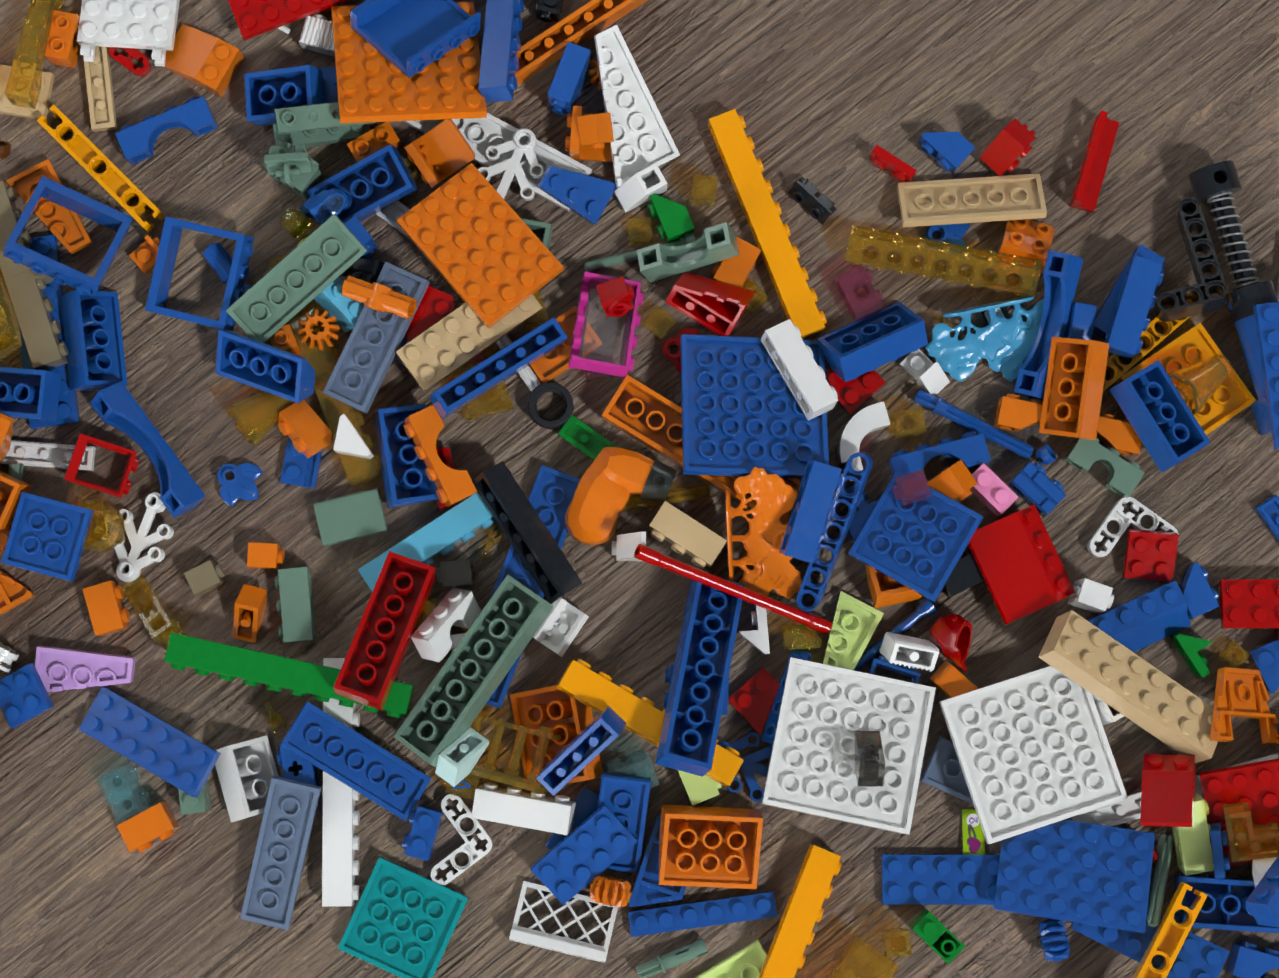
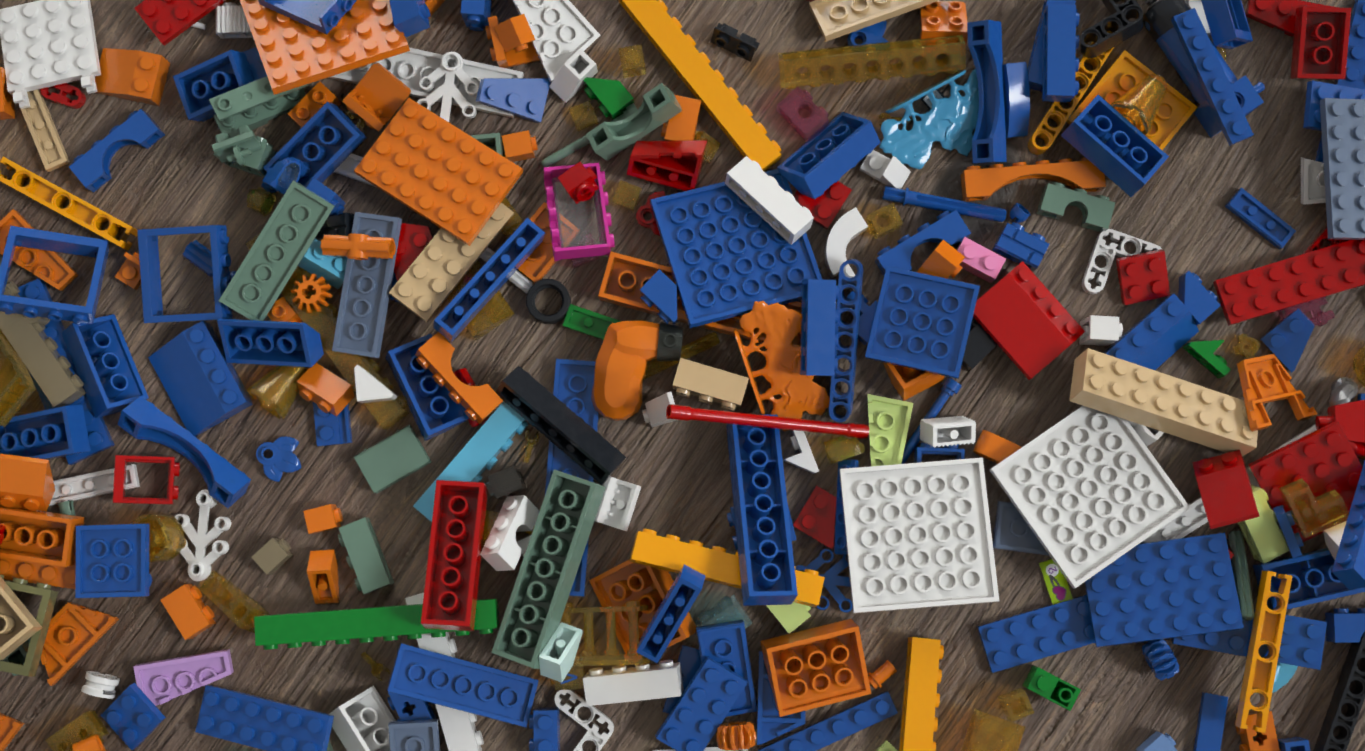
camera: 10 degrees left, 0 degrees up
(183, 381) = (200, 379): none -> blue slope
(567, 242) = (519, 146): none -> orange brick
(665, 432) = (662, 294): none -> blue slope
(772, 873) = (881, 674): none -> orange pin
(869, 758) = (941, 541): clear smoke slope -> none
(911, 487) = (906, 278): clear pink brick -> none
(953, 638) = (984, 407): red helmet -> none
(1074, 388) = (1027, 142): orange slope -> none

